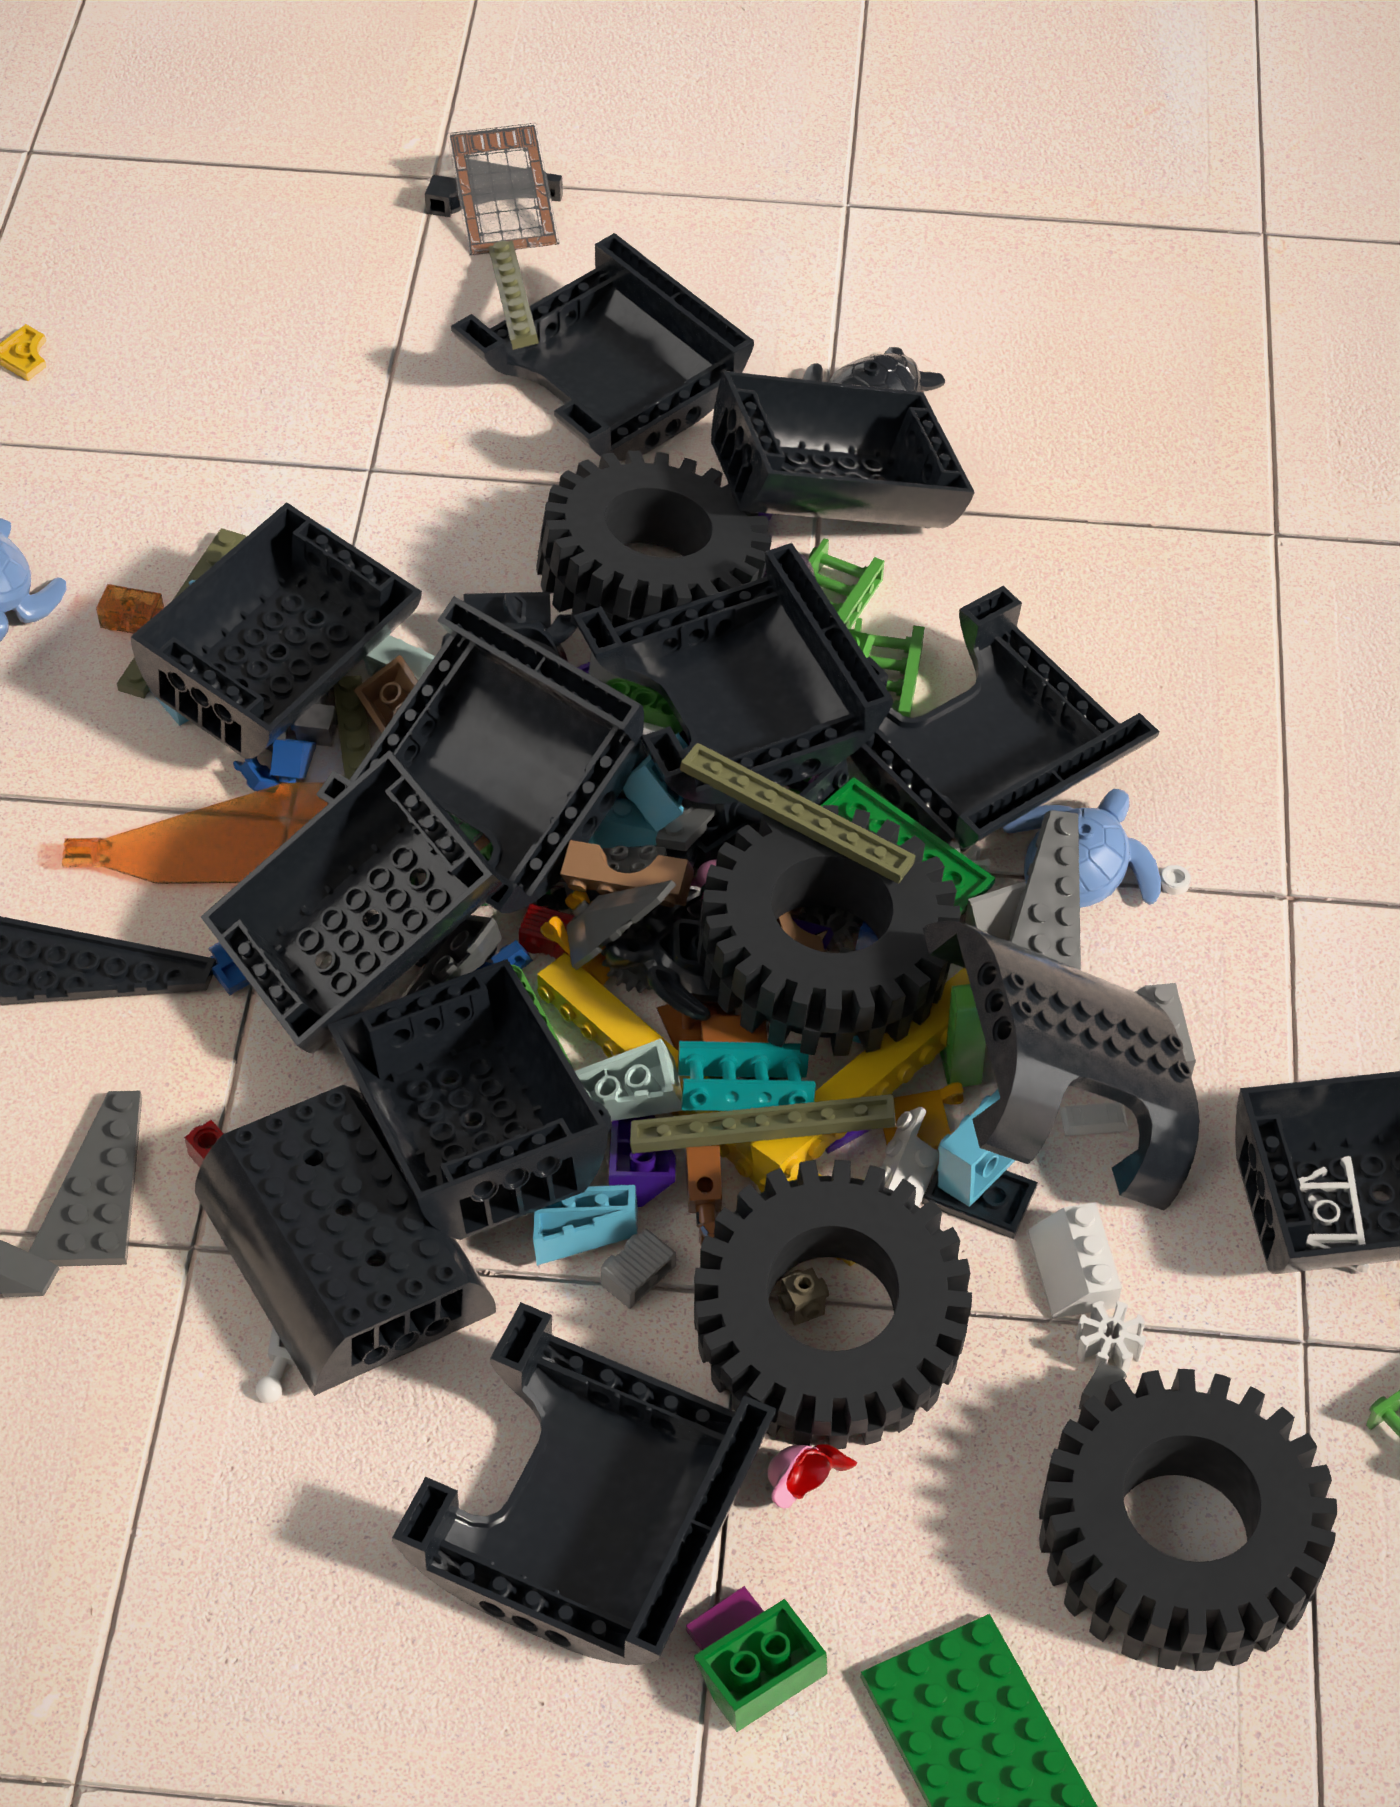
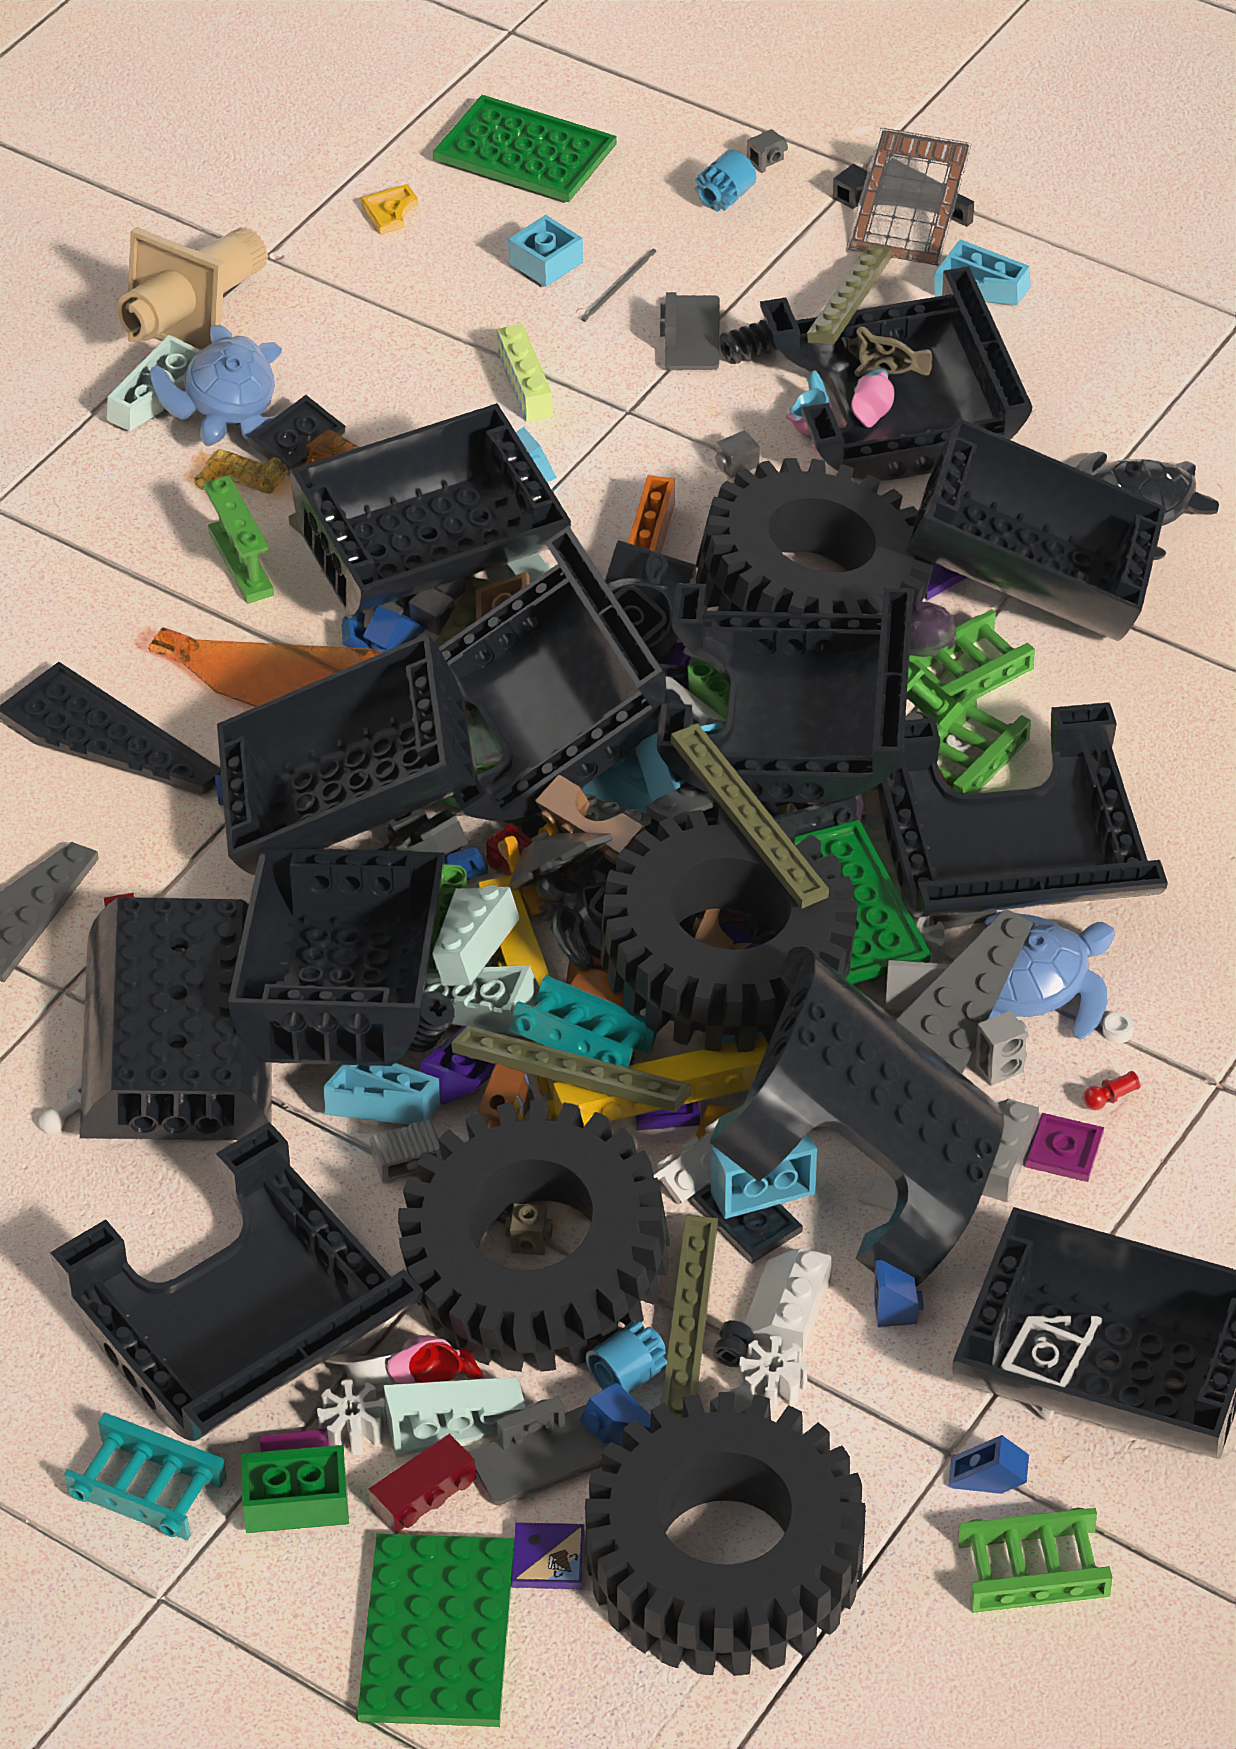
camera: 30 degrees right, 5 degrees down
(63, 654) = (243, 471): none -> clear yellow beam
(73, 600) = (293, 430): none -> black plate
(90, 723) = (238, 539): none -> bright green fence
(116, 255) = (525, 148): none -> green plate
(203, 344) = (545, 250): none -> medium azure brick
(255, 465) = (524, 372): none -> yellowish green brick
(285, 355) = (619, 285): none -> dark grey piece
(327, 225) = (725, 180): none -> dark azure gear
(341, 187) = (766, 149): none -> dark grey brick
(383, 376) = (690, 331): none -> dark grey bracket
(444, 367) = (747, 340): none -> black piece
(466, 557) = (654, 513): none -> orange brick
(501, 475) = (737, 453): none -> flat silver brick
(540, 408) = (814, 396): none -> medium azure hair
(580, 1024) = (473, 932): none -> light aqua wedge
(581, 338) = (887, 354): none -> dark tan animal
(584, 1690) = (146, 1446): none -> teal fence
(594, 227) = (997, 276): none -> medium azure wedge
(594, 377) = (872, 397): none -> bright pink hair
(753, 1506) = (365, 1369): none -> white piece
(778, 1558) = (352, 1416): none -> white gear
(855, 1515) = (464, 1408): none -> light aqua wedge
(873, 1600) = (422, 1484): none -> dark red brick
(956, 1513) = (536, 1450): none -> dark grey bracket
(980, 1386) = (627, 1357): none -> dark azure gear
(1010, 1334) = (689, 1312): none -> olive plate
(1013, 1448) = (611, 1412): none -> blue slope
(1029, 1614) = (548, 1555): none -> tile
(1057, 1326) = (733, 1343): none -> black wheel
(1104, 940) = (1001, 1047): none -> light grey brick
(1168, 1217) = (895, 1296): none -> blue slope
(1210, 1009) = (1065, 1147): none -> magenta tile
(1211, 941) = (1096, 1097): none -> red pin
(1352, 1342) = (990, 1467): none -> blue slope

